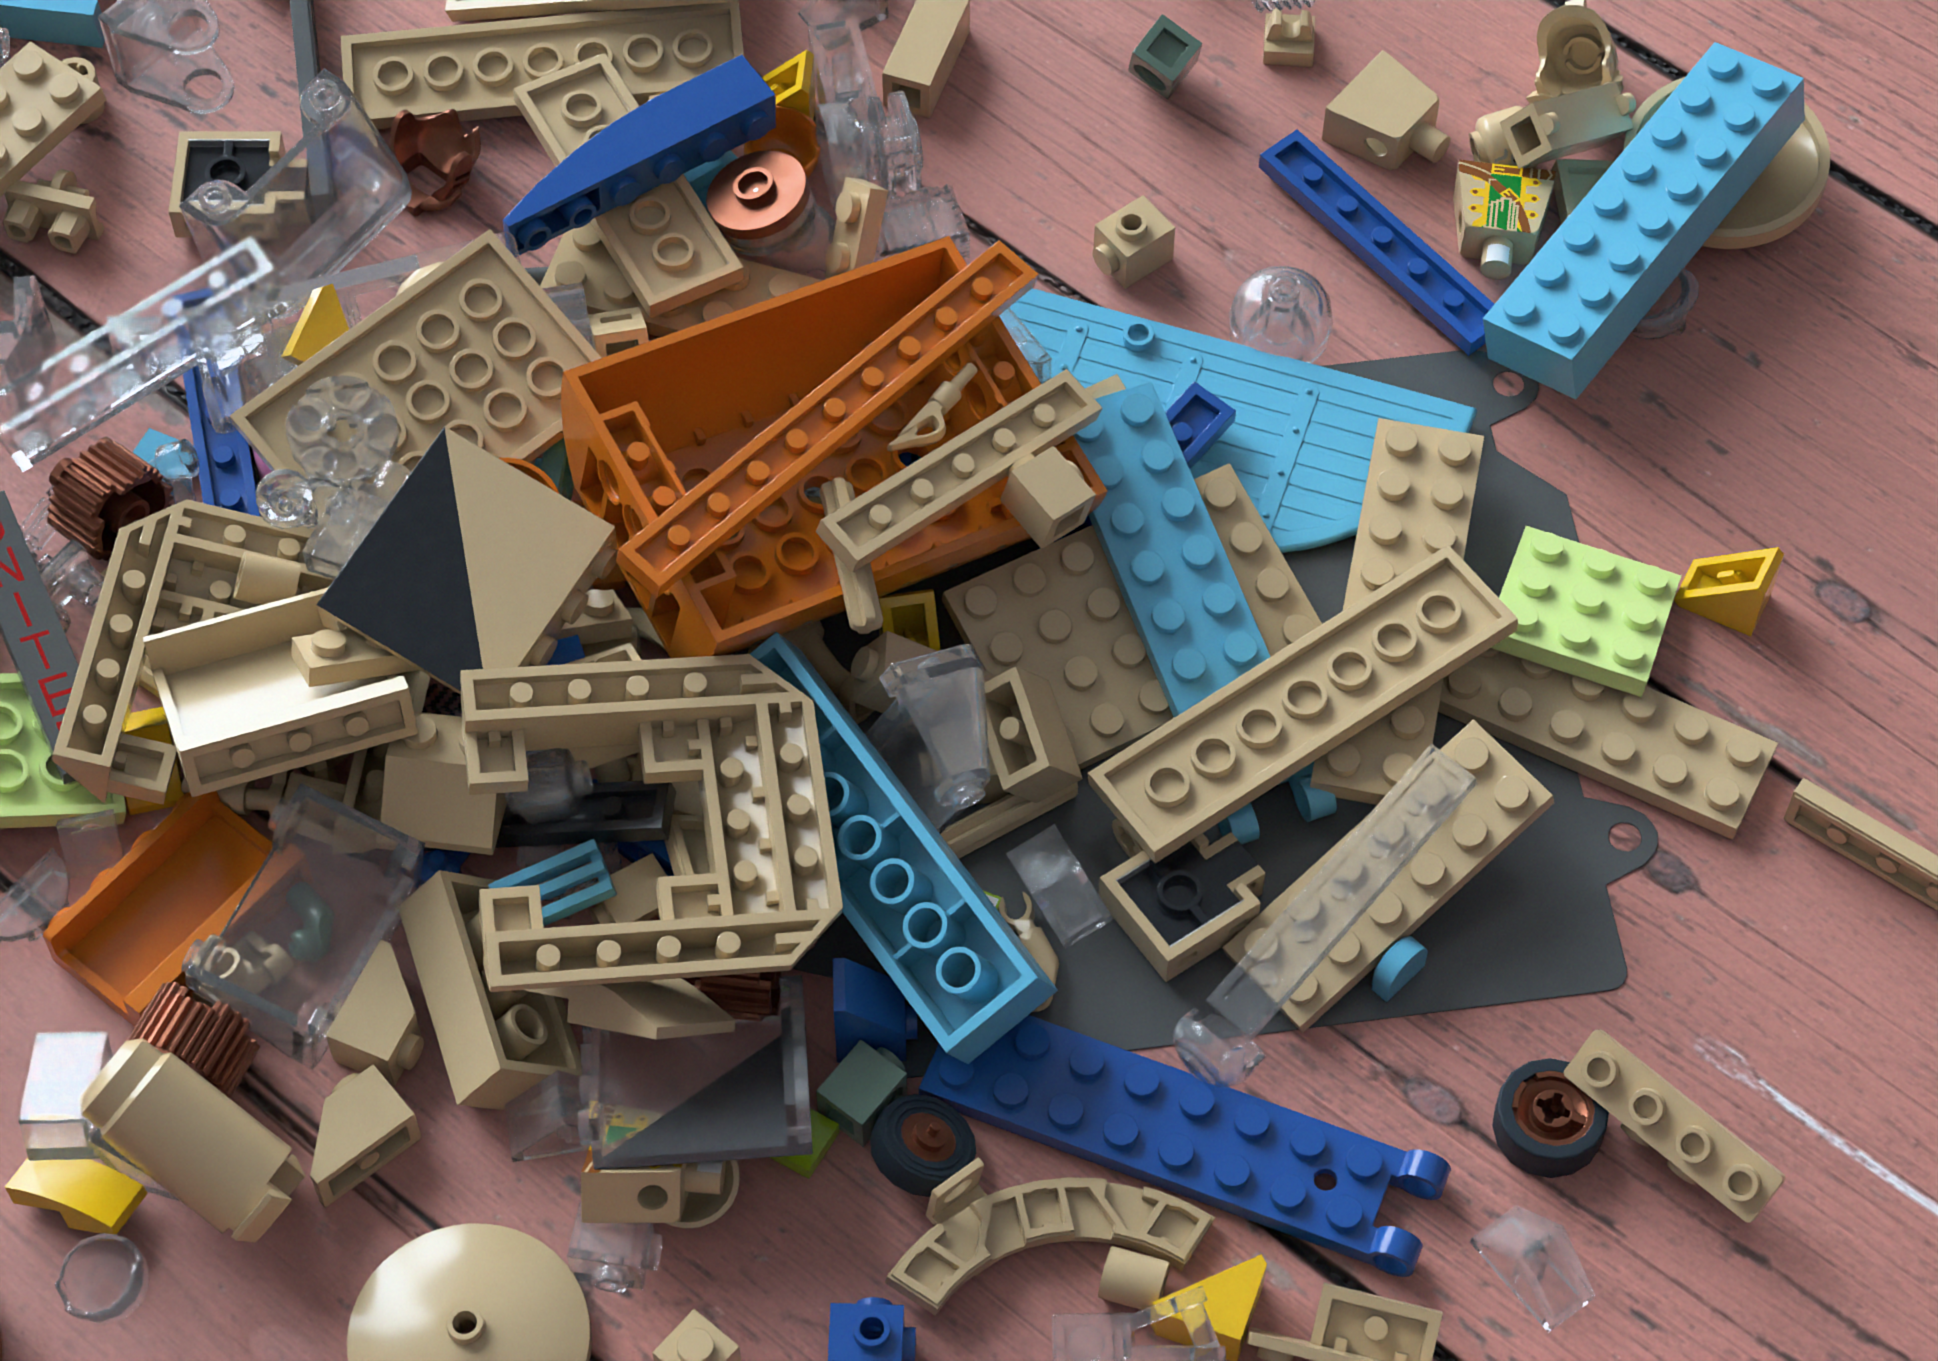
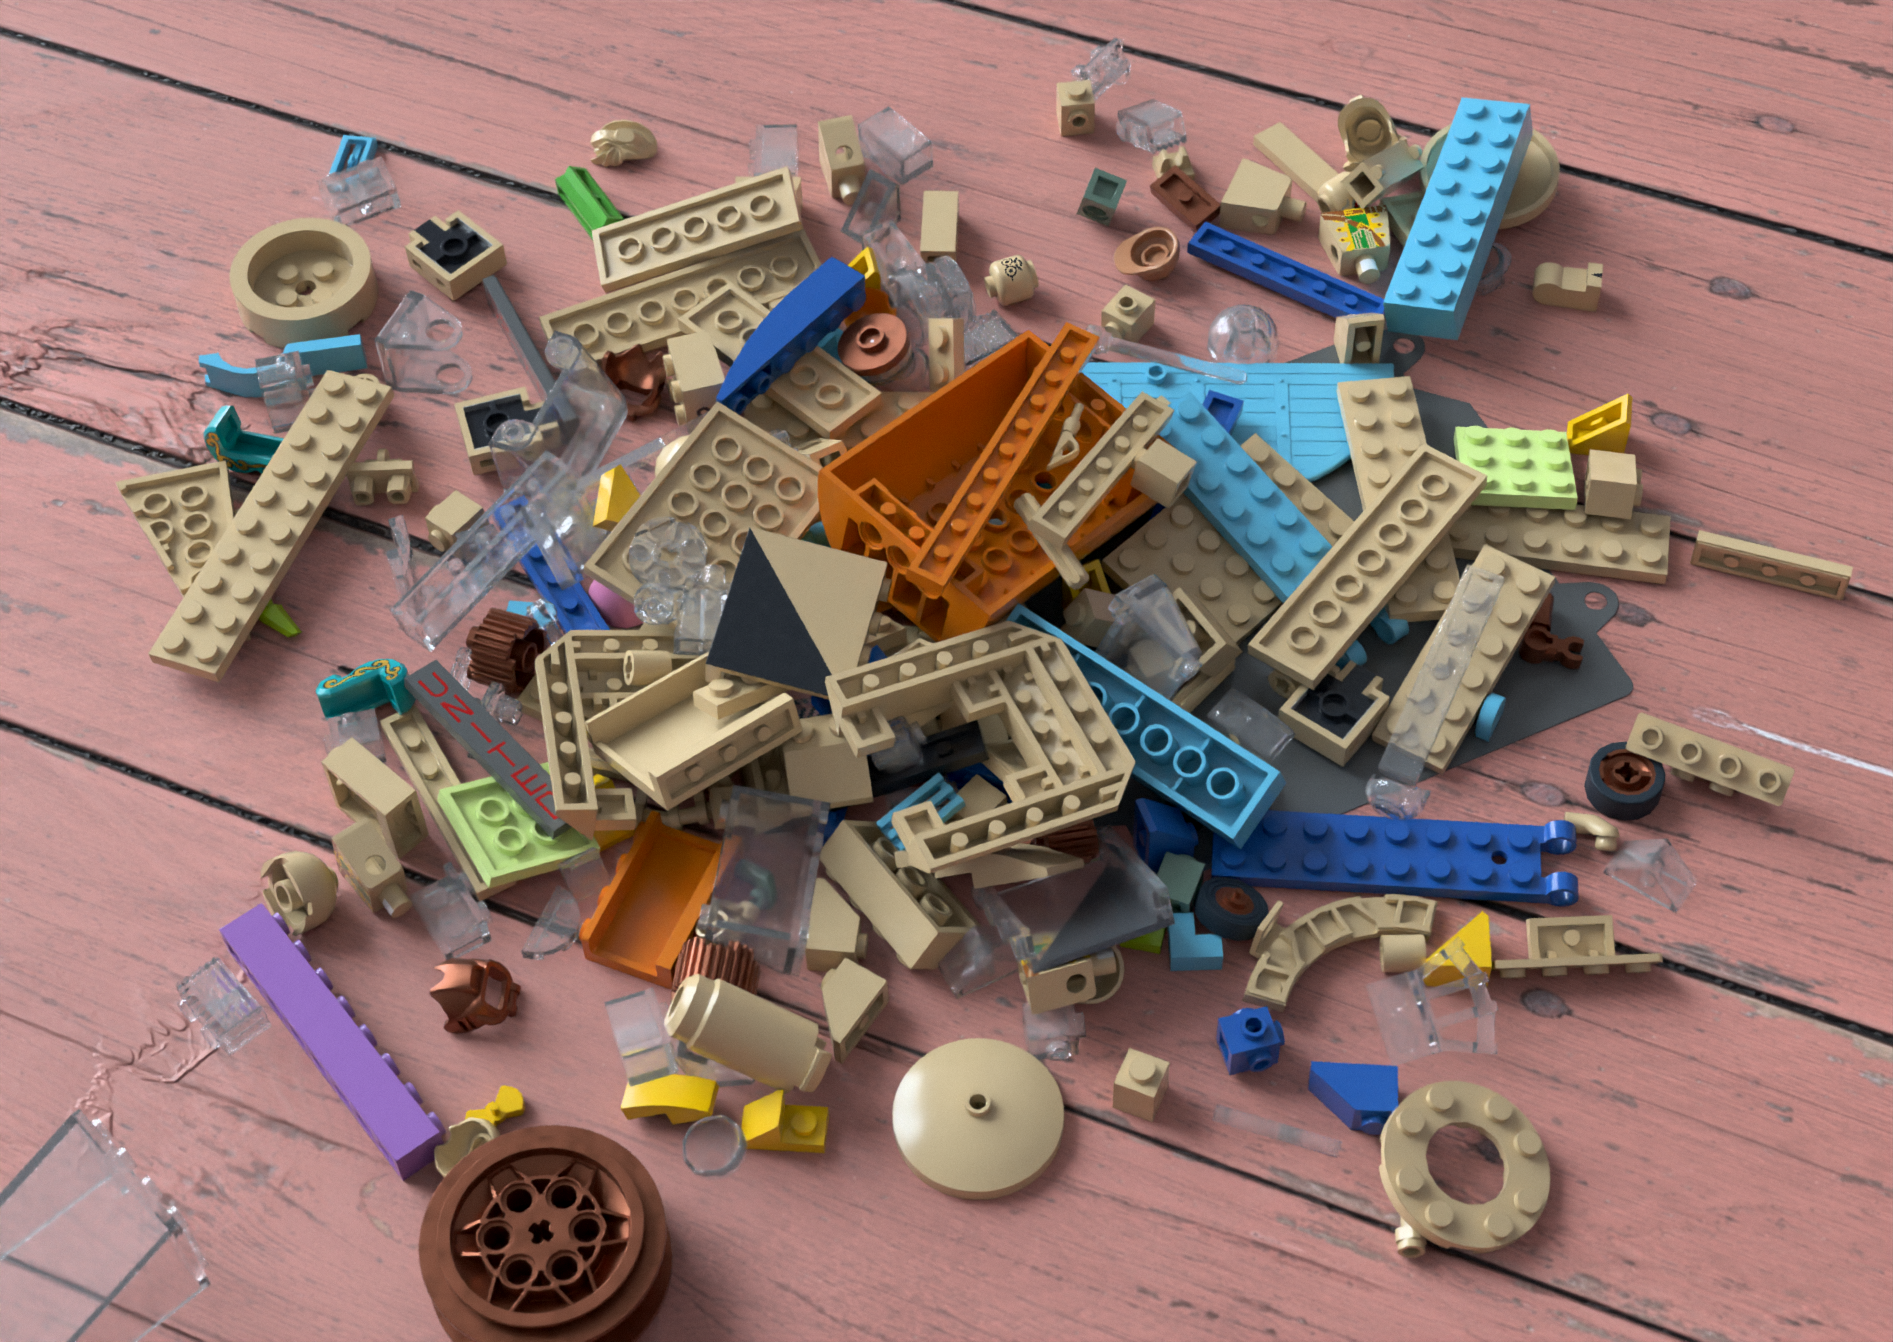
camera: 15 degrees left, 5 degrees down
(114, 291) = (450, 517): none -> tan brick
(212, 1276) = (783, 1127): none -> yellow slope
(504, 167) = (694, 374): none -> tan brick
(845, 1185) = (1192, 951): none -> medium azure piece
(994, 146) = (1011, 280): none -> tan head
(1081, 266) = (1213, 370): none -> clear piece
(1198, 157) = (1148, 254): none -> nougat hat
(1284, 87) = (1185, 198): none -> copper plate
(1438, 359) = (1359, 337): none -> tan slope
(1464, 65) = (1294, 158): none -> tan tile
(1483, 1174) = (1591, 824): none -> tan arm
(1514, 884) = (1542, 646): none -> copper bar
(1707, 674) = (1612, 484): none -> tan brick
(1774, 357) = (1568, 286): none -> tan leg

